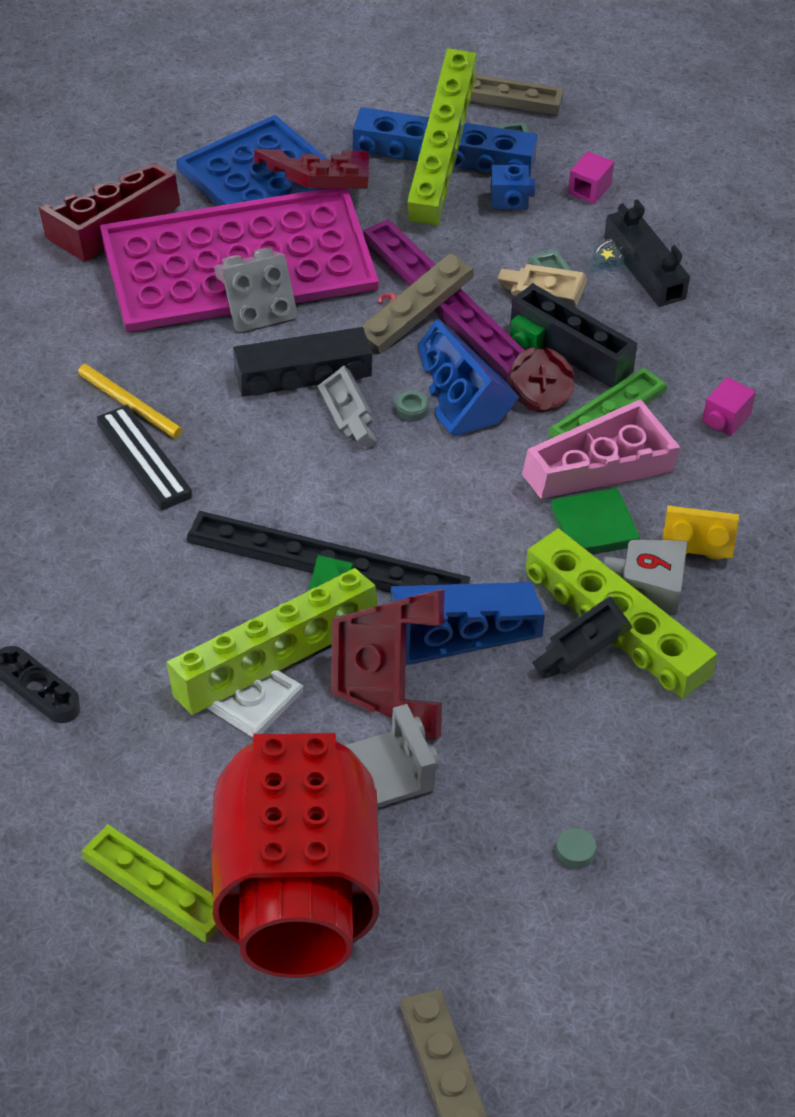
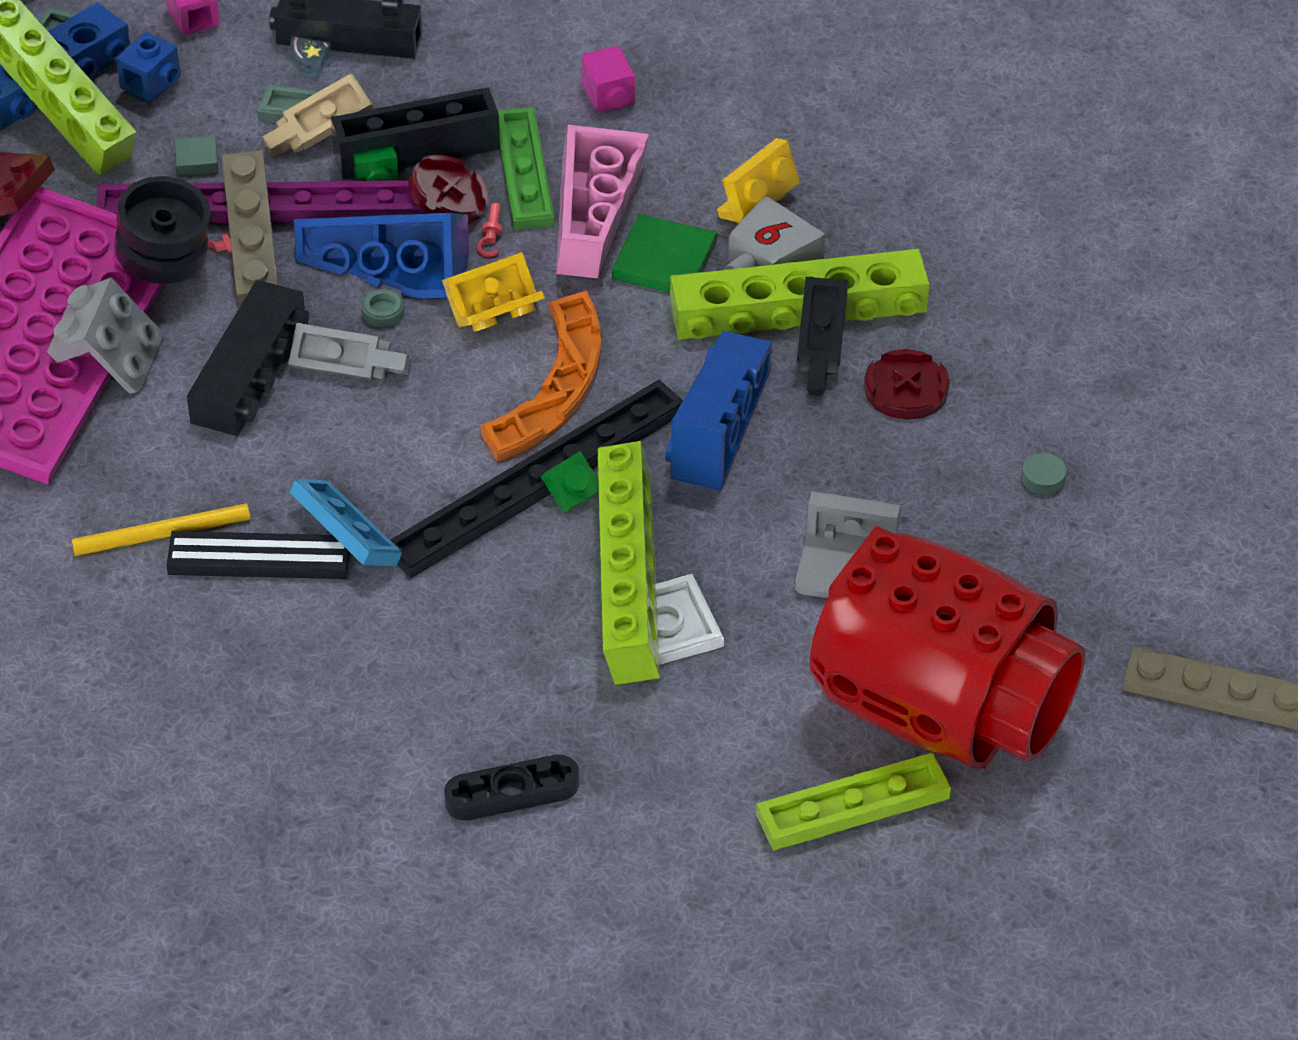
camera: 55 degrees left, 0 degrees up
(196, 481) = (345, 522): none -> dark azure tile
(356, 259) = (162, 229): none -> black wheel
(372, 656) = (723, 489): dark red wing -> none
(425, 532) = (562, 389): none -> orange tile
(465, 249) = (196, 156): none -> sand green tile
(467, 447) = (491, 291): none -> yellow bracket
(533, 422) = (490, 230): none -> coral hand
(594, 721) = (906, 384): none -> dark red tile

